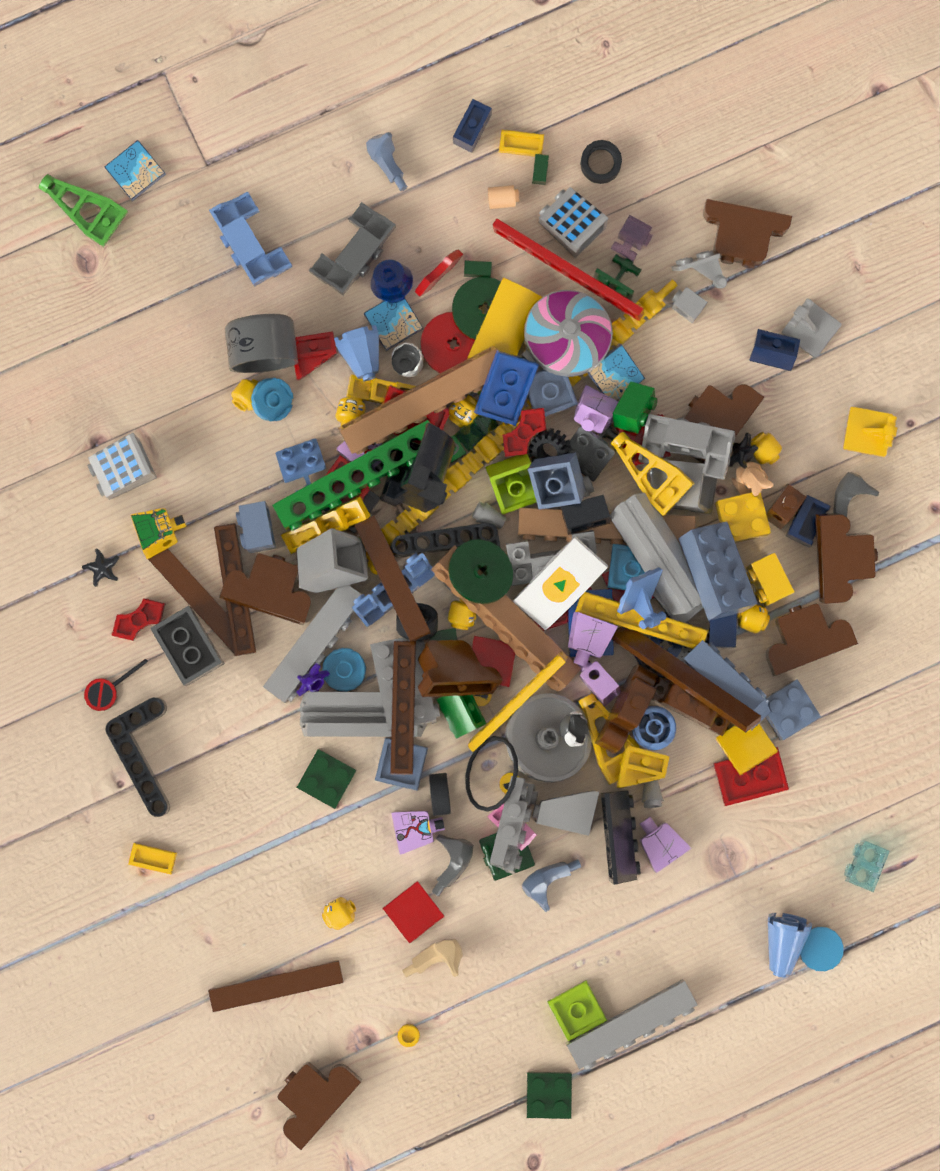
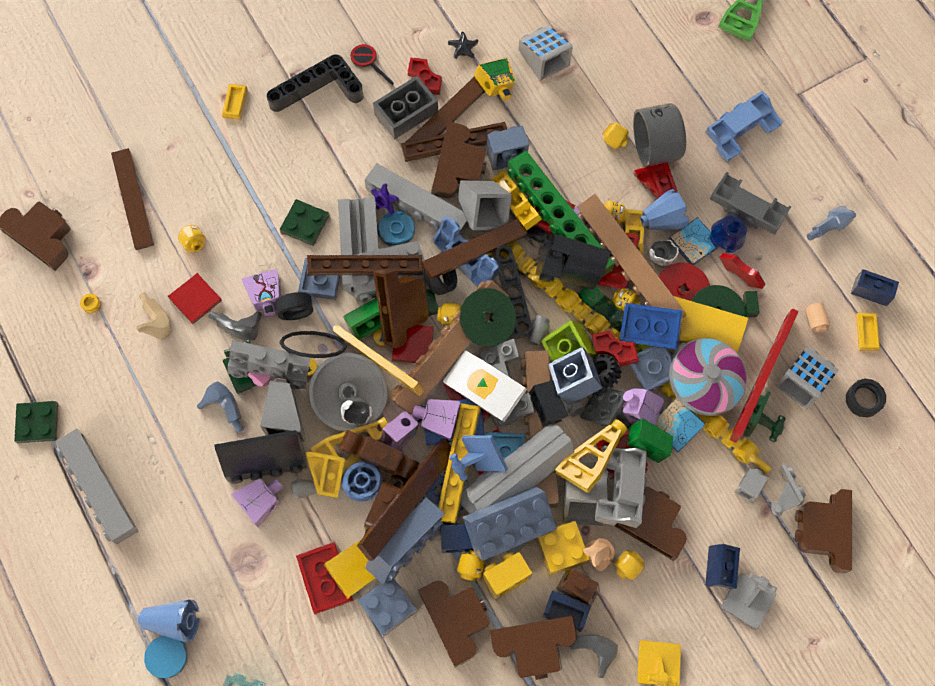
camera: 85 degrees right, 15 degrees down
(135, 170) = (783, 43): tile -> none
(272, 399) = (614, 152): dark azure tile -> none
(301, 461) = (566, 178): medium blue plate -> none
(540, 169) = (848, 348): dark green piece -> none
(577, 1010) = (110, 440): lime tile -> none
(634, 234) = (806, 430): clear purple brick -> none
(743, 452) = (623, 543): black animal -> none

